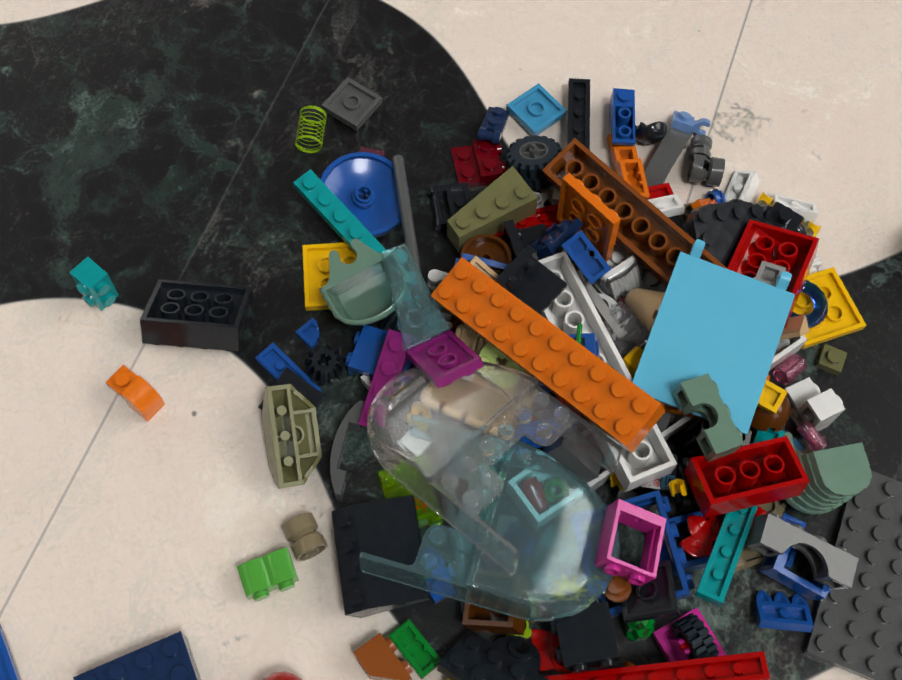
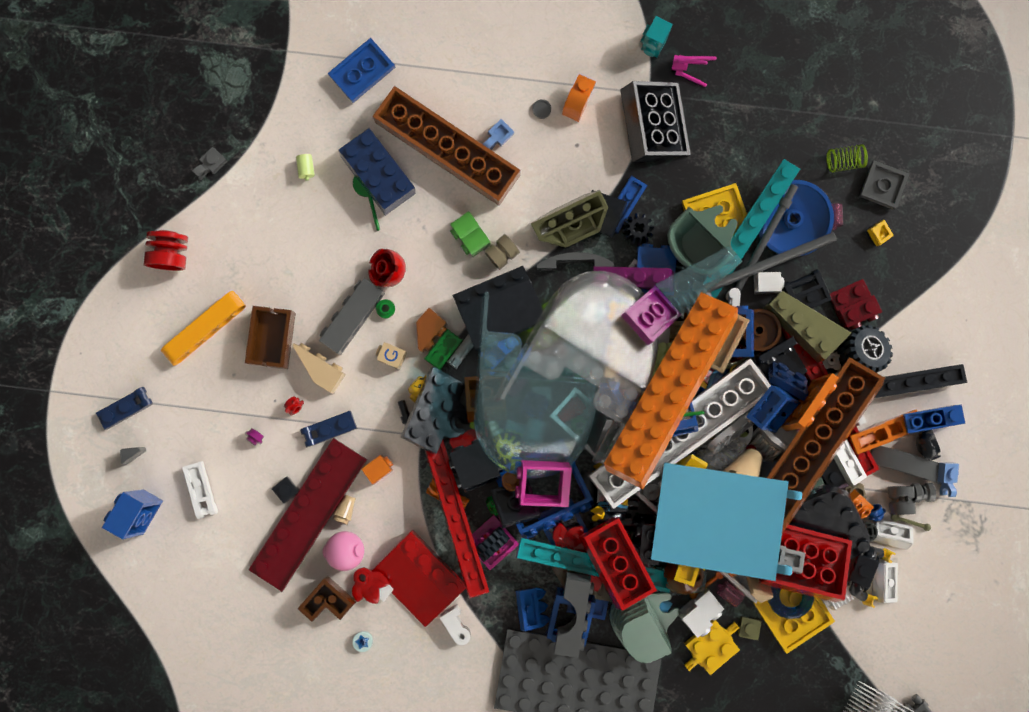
camera: 80 degrees right, 20 degrees up
(131, 444) = (542, 109): none -> dark grey piece
(134, 578) = (446, 145): none -> dark orange brick
(137, 268) = (681, 63): none -> dark pink plant
(145, 504) = (499, 134): none -> medium blue plate
(309, 333) = (662, 210): blue tile -> none
(345, 197) = (784, 204): none -> dark grey bar
(404, 120) = (880, 232): none -> yellow tile
(424, 624) = (461, 352): none -> light grey pin
(430, 241) = (768, 283): none -> white brick
(493, 125) = (894, 309): dark blue plate -> none
(531, 281) = (733, 368): black bracket -> none
(536, 110) = (923, 342): dark azure plate -> none
(703, 396) = (668, 518): sand green arch -> none
(737, 157) = (926, 527): none -> olive hinge
(812, 437) = (672, 615): clear pink pin -> none
(859, 406) = (712, 649): none -> yellow plate

